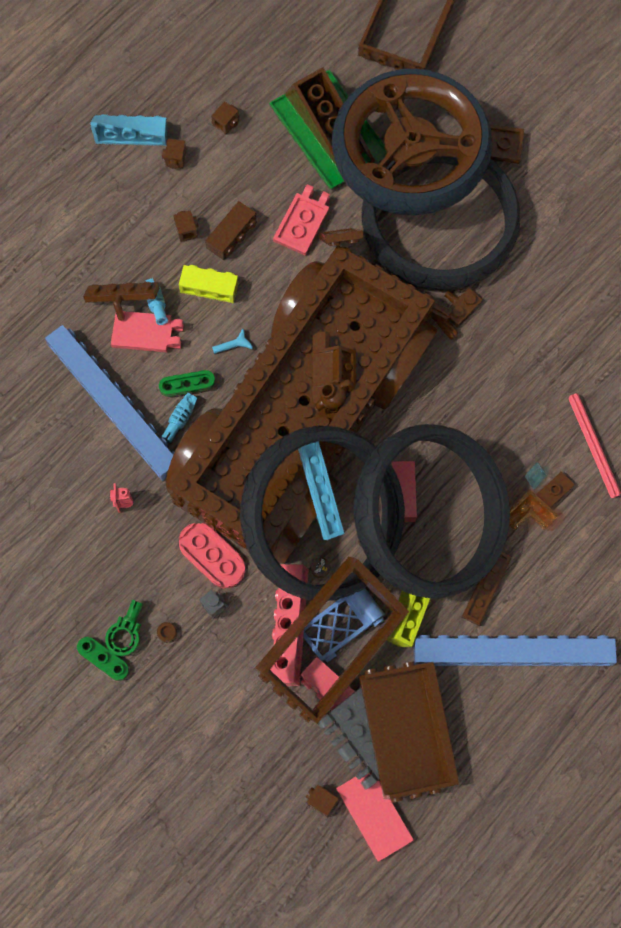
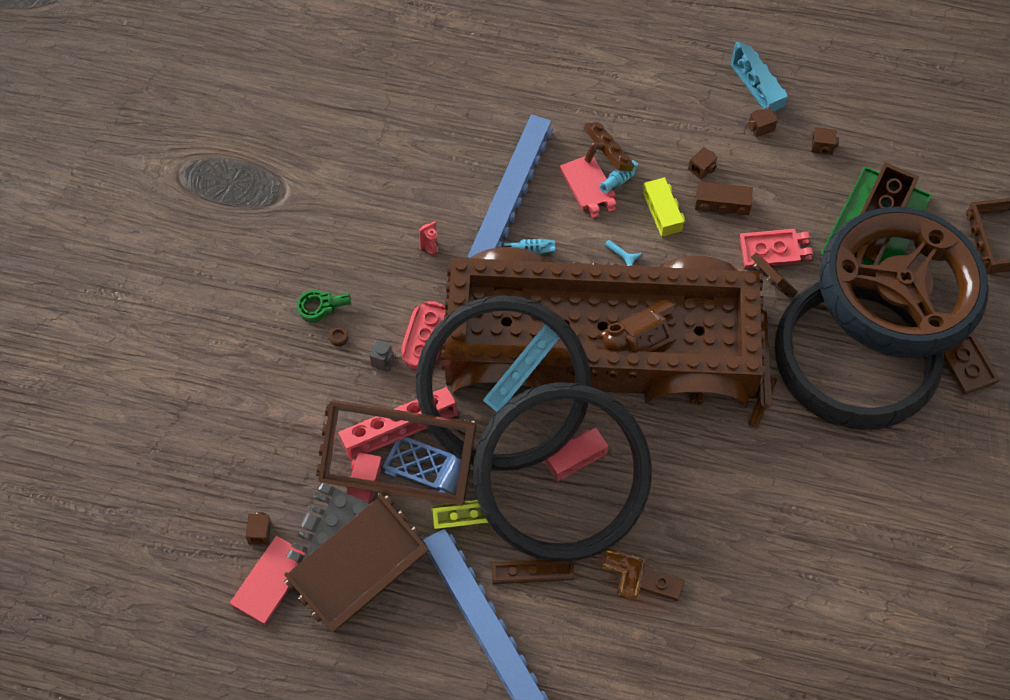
camera: 60 degrees right, 10 degrees down
(109, 664) = (288, 307): green plate -> none
(194, 378) = (561, 231): green plate -> none
(462, 305) = (786, 416): reddish brown plate -> none
(535, 475) = (664, 559): clear light blue slope -> none
(594, 446) = (729, 599): coral axle -> none

